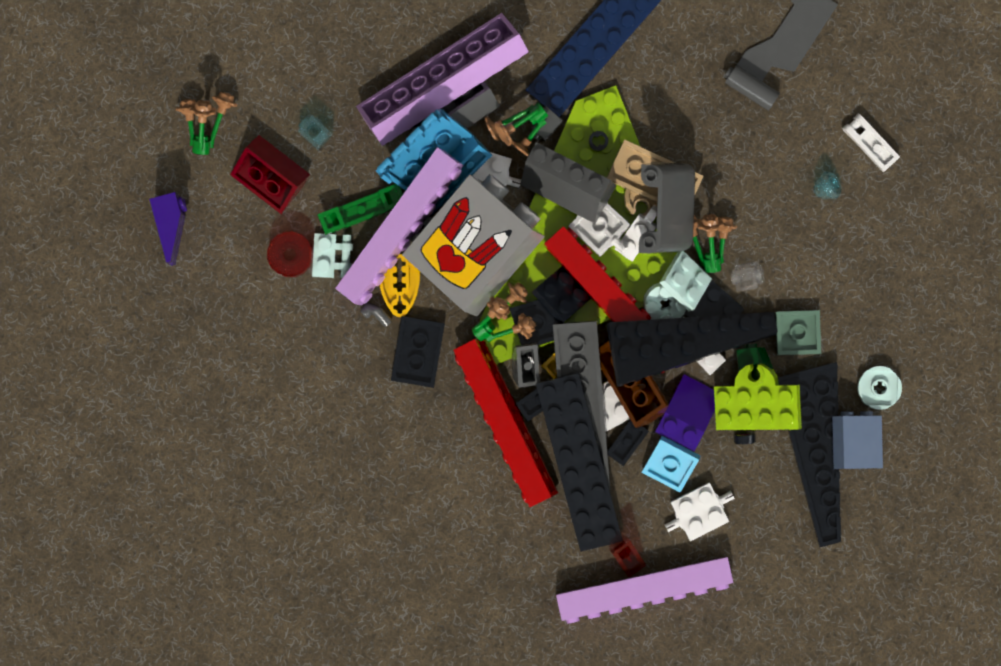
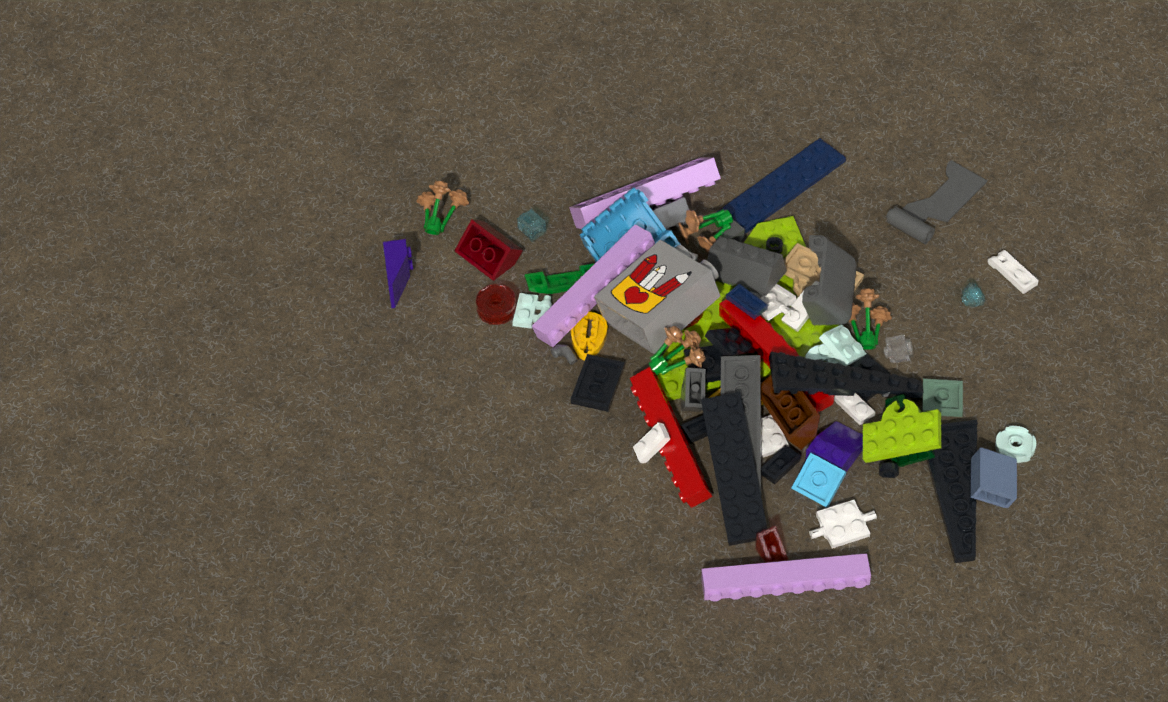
camera: 10 degrees right, 35 degrees down
(486, 435) = (651, 443): none -> white plate
(575, 244) = (746, 301): none -> dark blue plate

